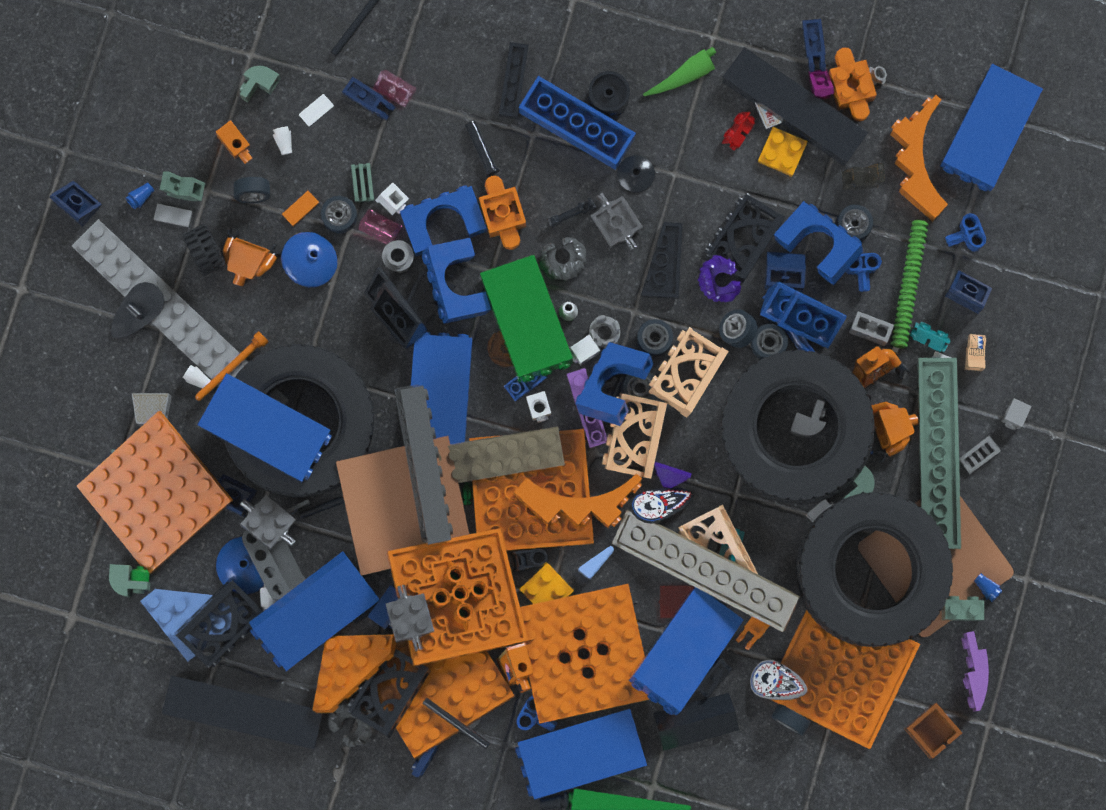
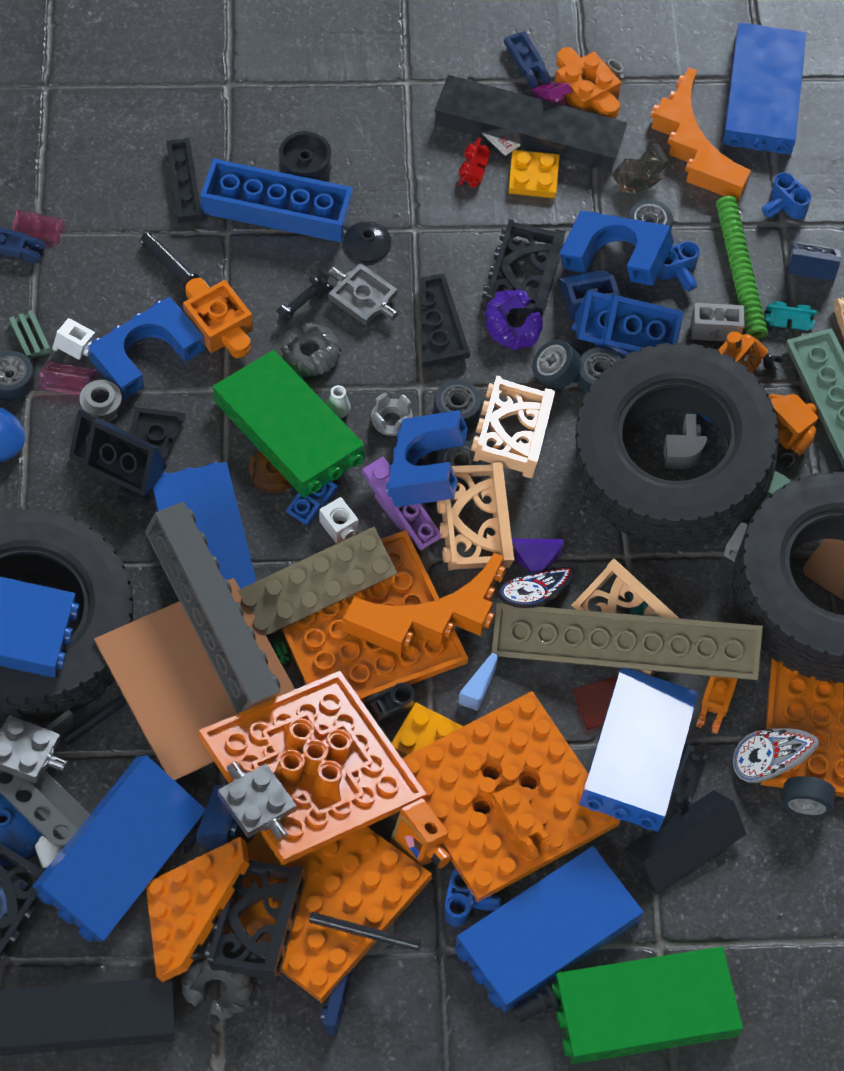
camera: 20 degrees left, 20 degrees down
(451, 305) = (187, 431): blue arch -> none
(584, 350) = (377, 440): white brick -> none
(586, 678) = (522, 819): none -> orange hinge
(692, 69) = (395, 115): bright green piece -> none

